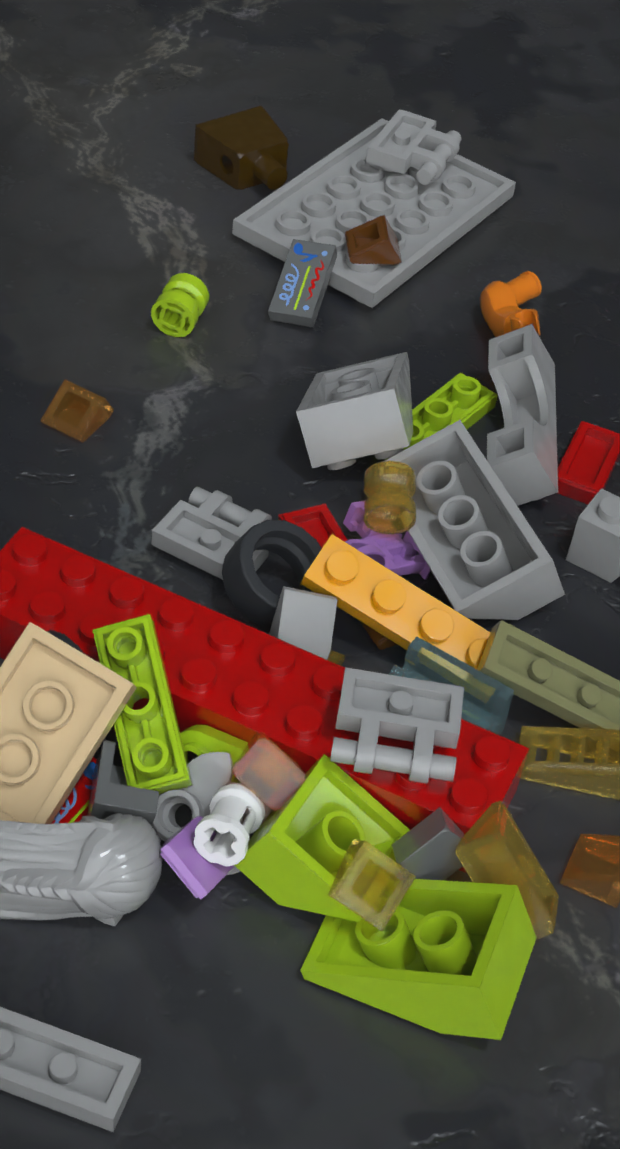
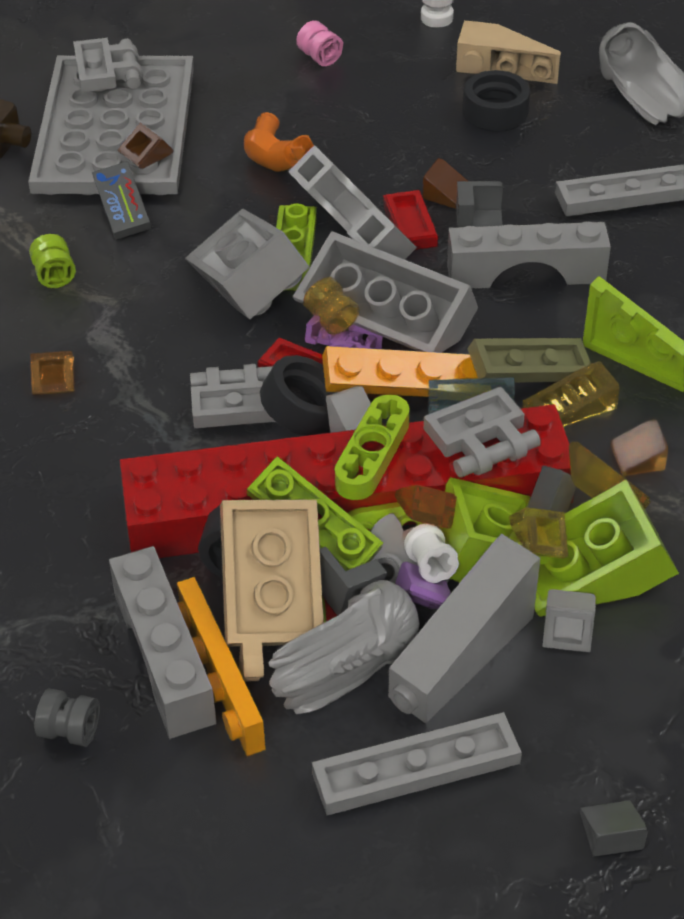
camera: 30 degrees left, 0 degrees up
(187, 937) = (467, 629): none -> light grey slope
(254, 687) = (373, 462): none -> lime beam
(322, 1004) = (569, 620): none -> light grey slope

